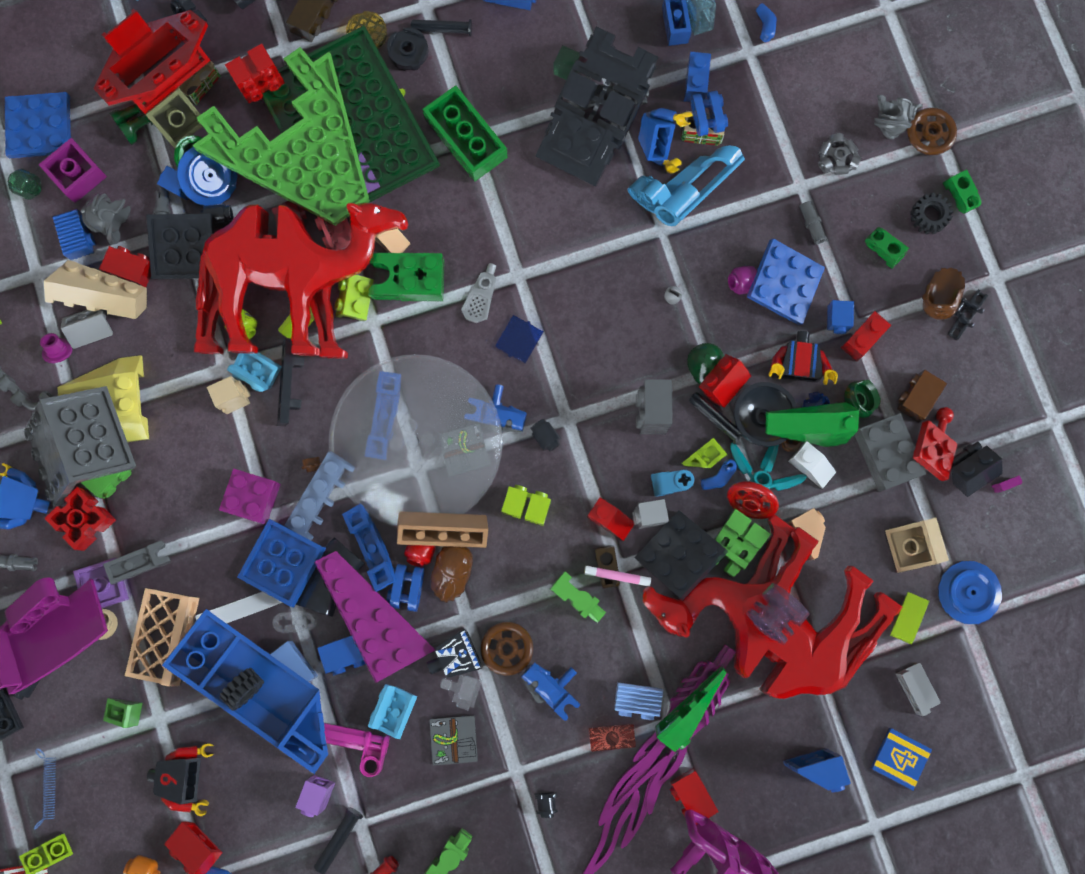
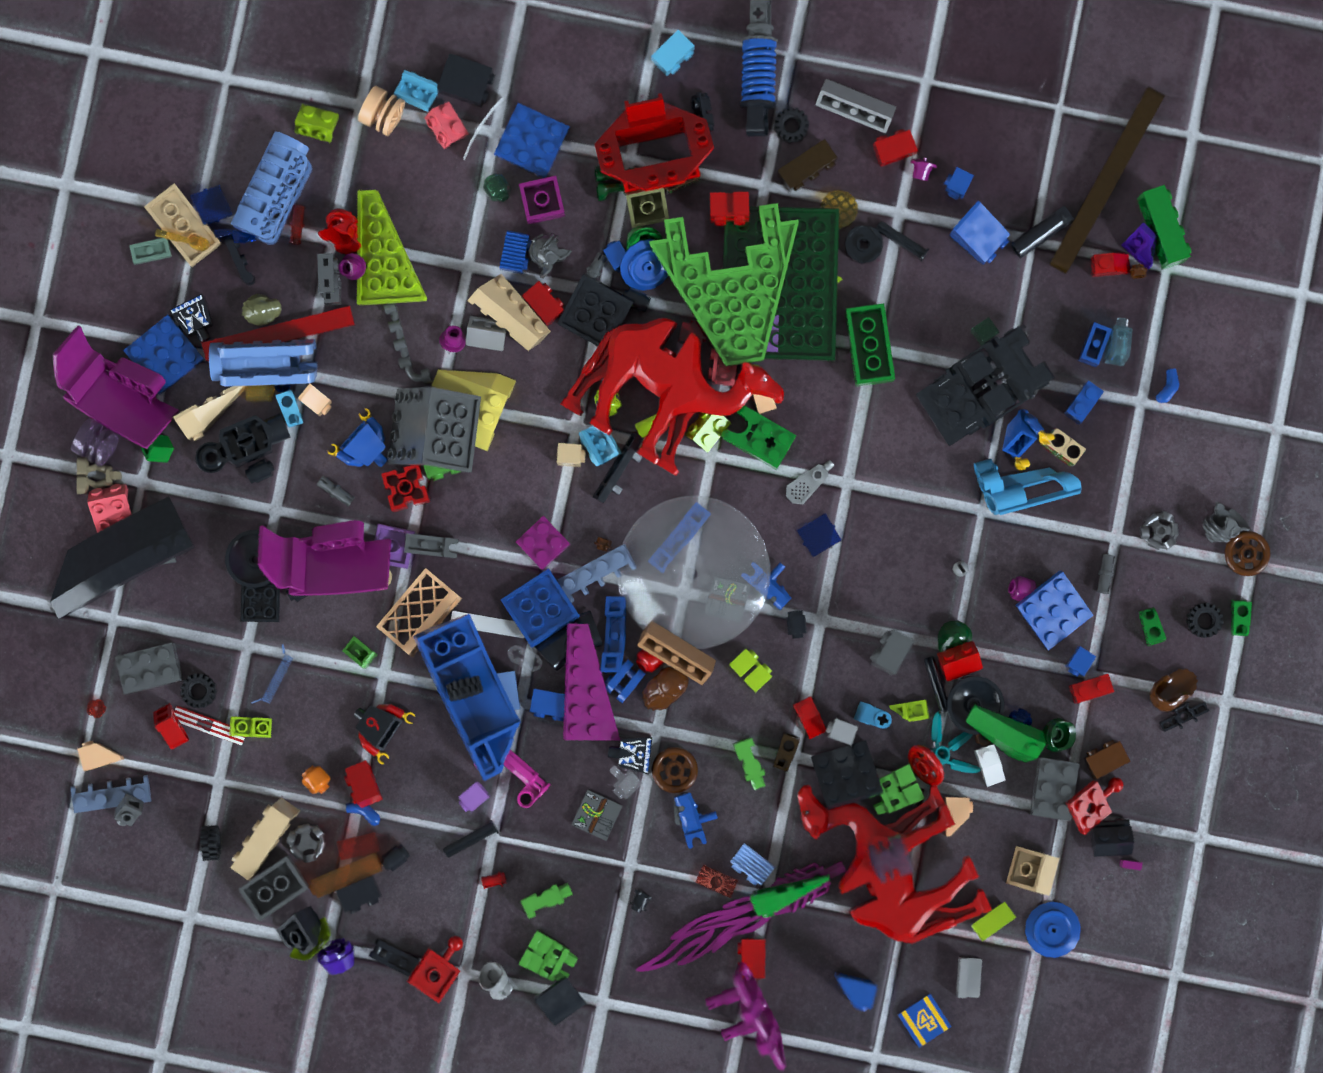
camera: 25 degrees right, 5 degrees up
(392, 711) = (563, 767): medium azure bracket -> none
(619, 576) = (789, 763): bright pink bar -> none
(714, 104) = (1080, 435): blue brick -> none
(721, 478) = (913, 734): blue arm -> none
(802, 361) = (1029, 679): torso -> none

